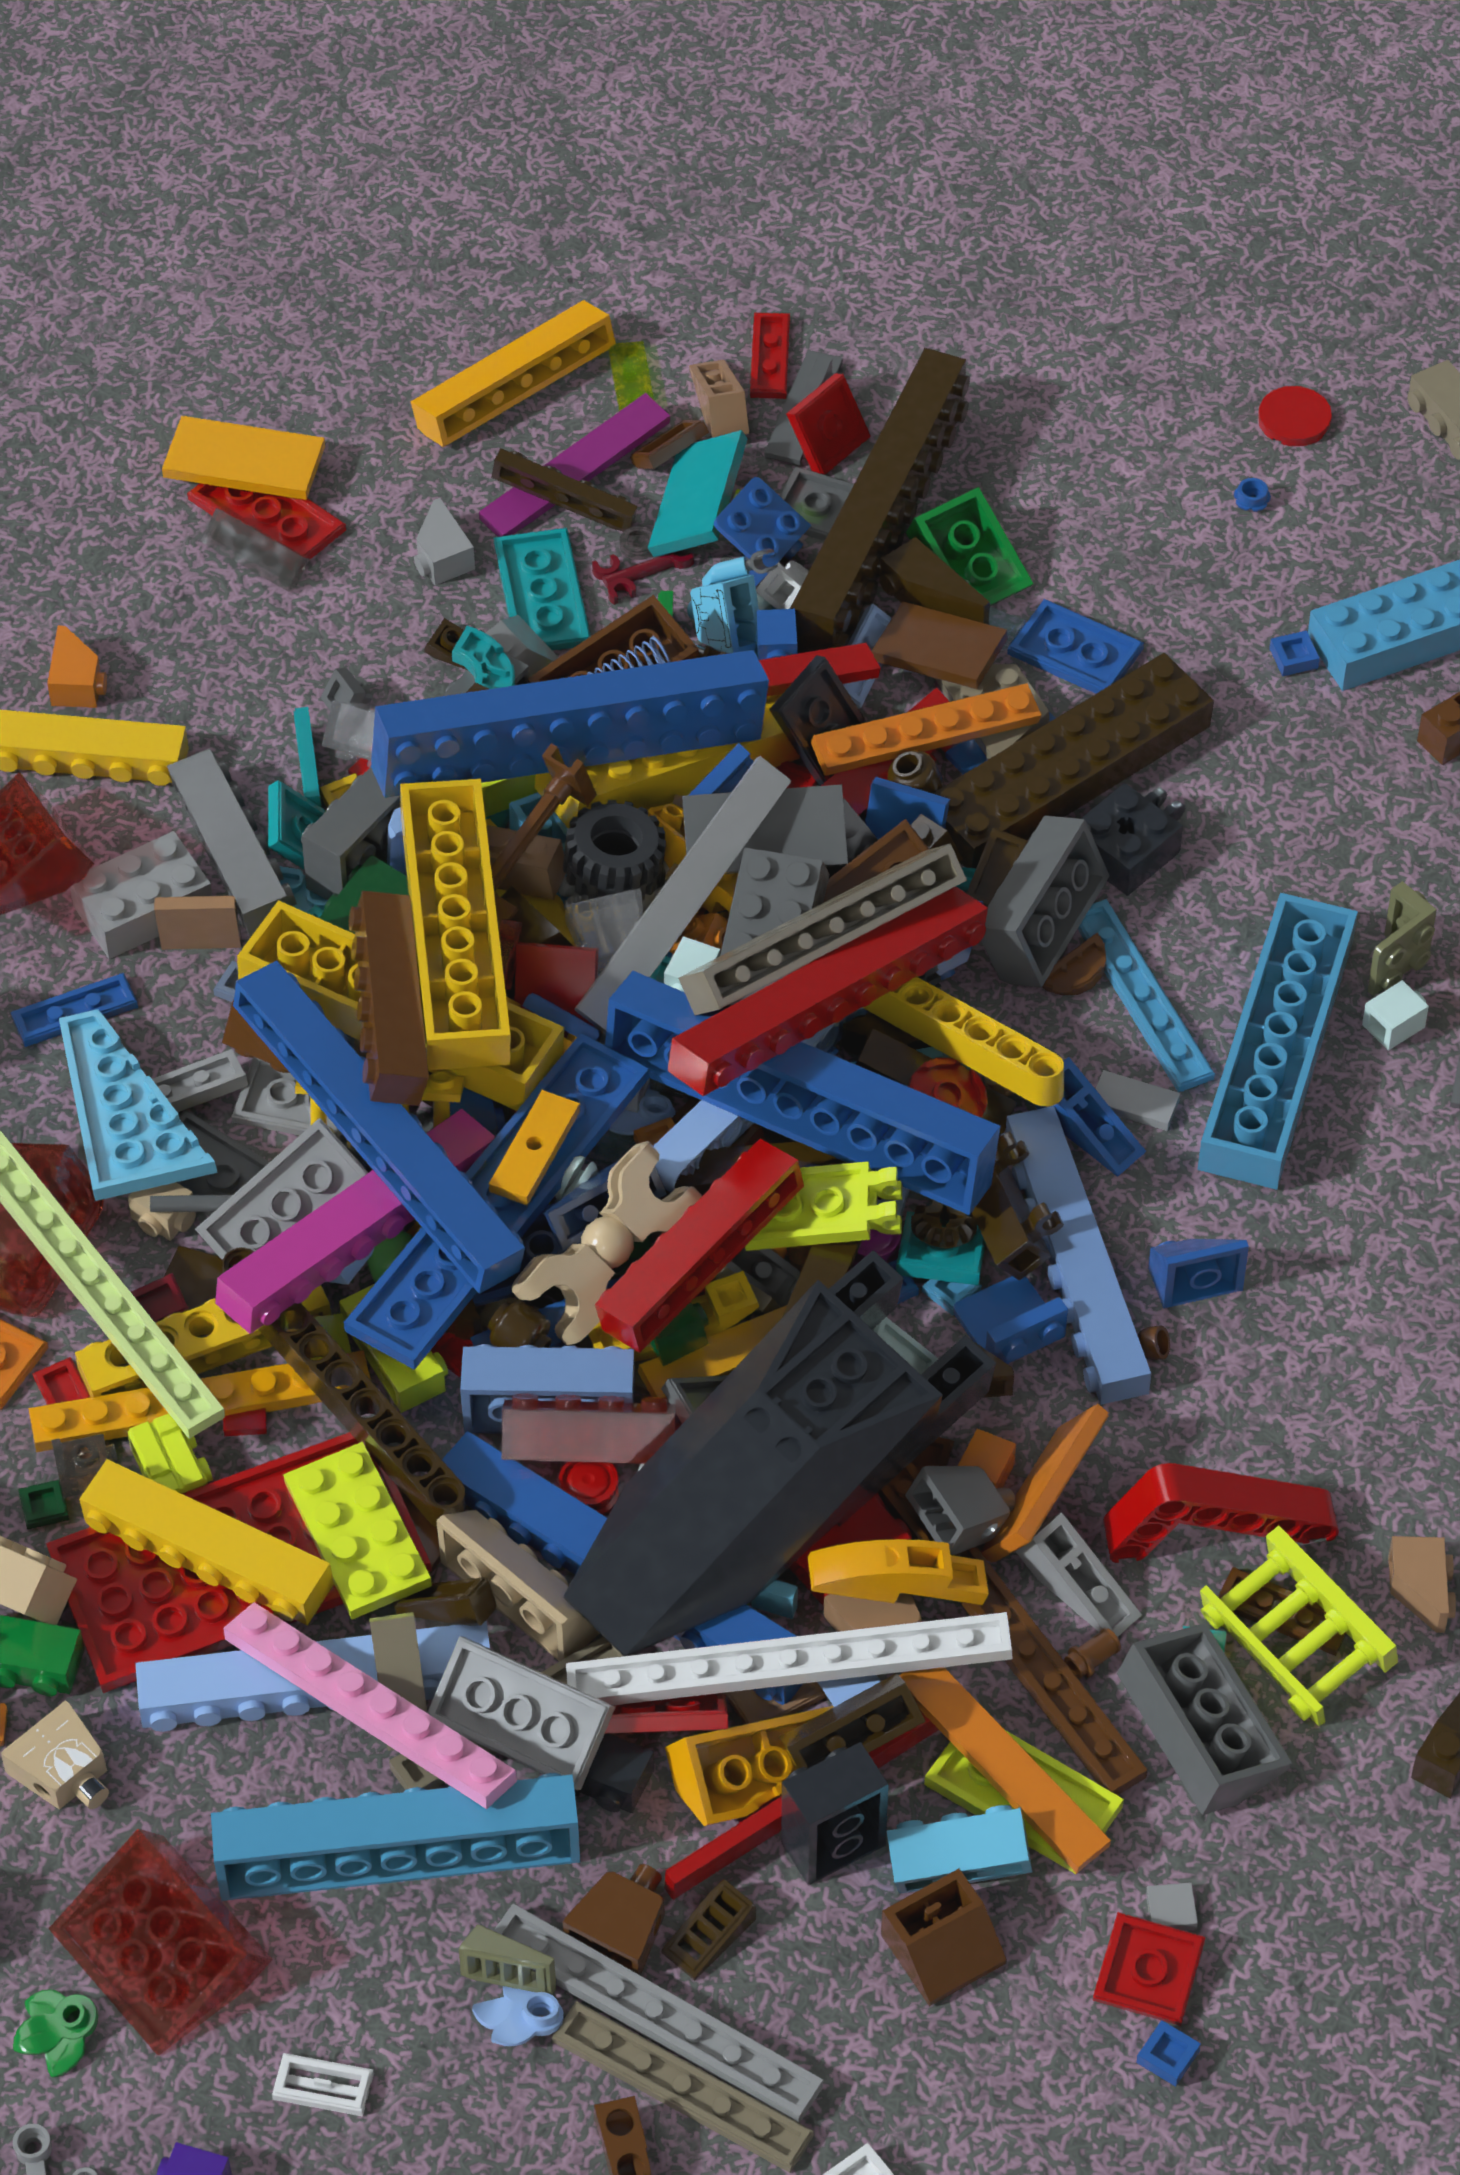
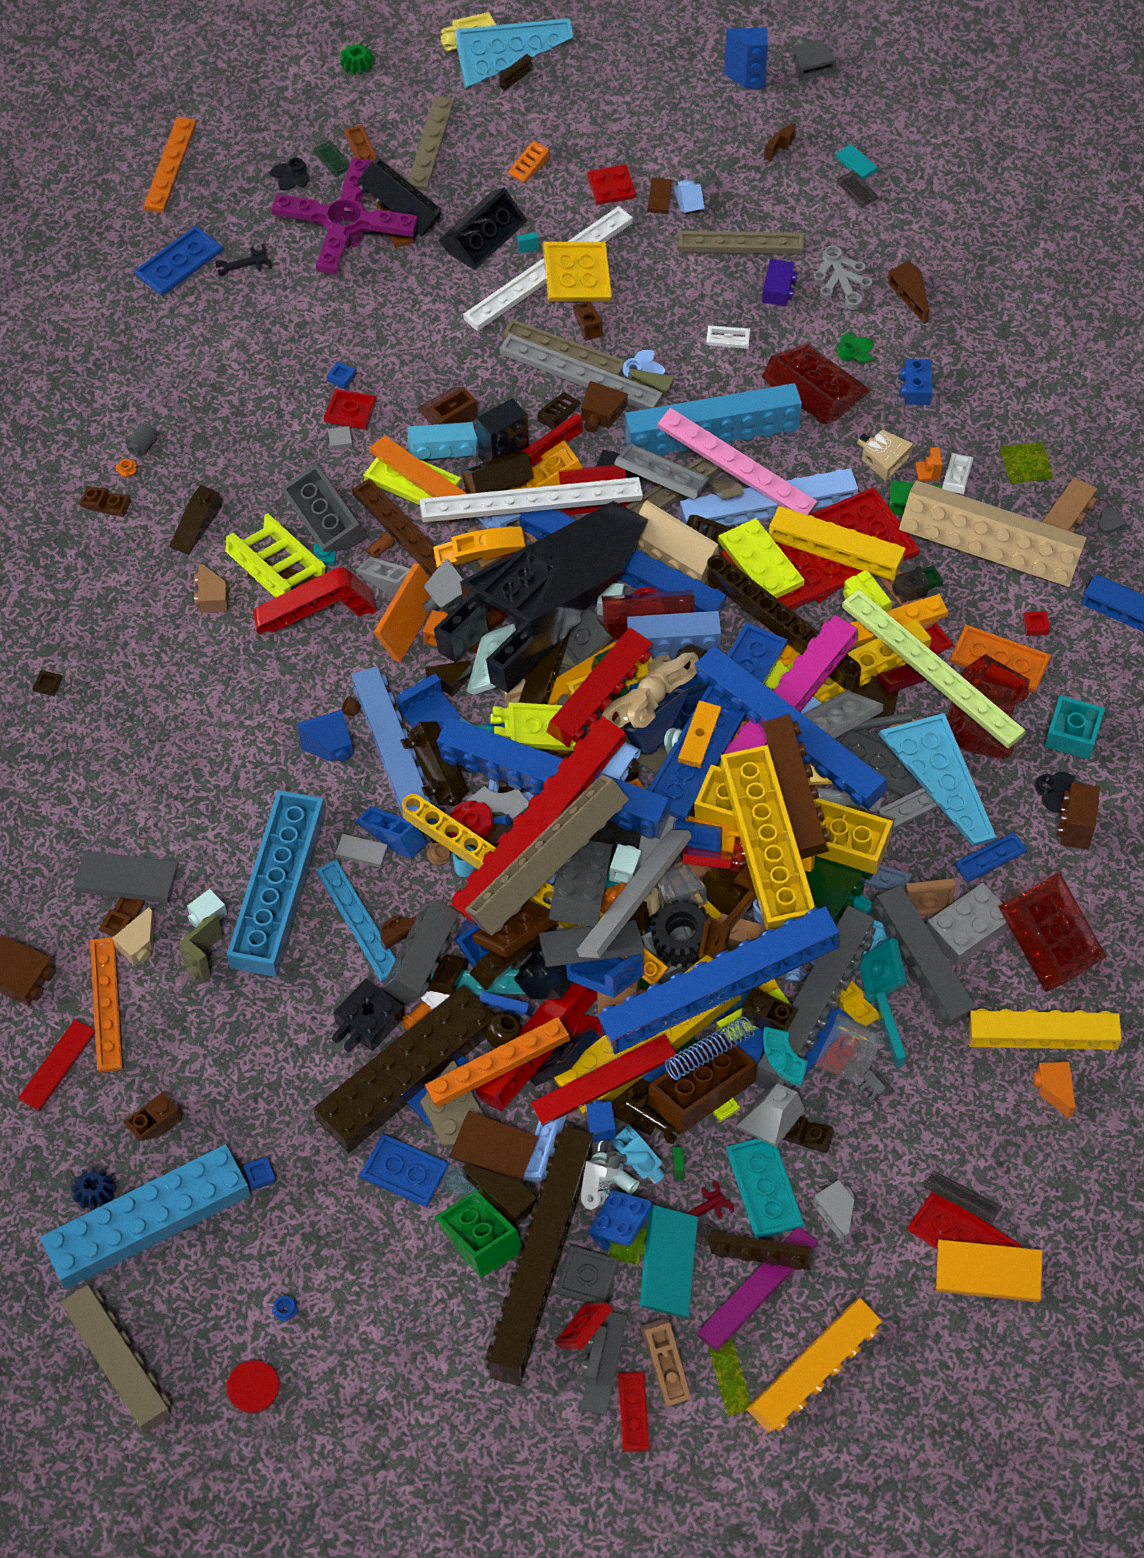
camera: 175 degrees right, 5 degrees up
(669, 444) = (695, 1314): reddish brown tile -> none

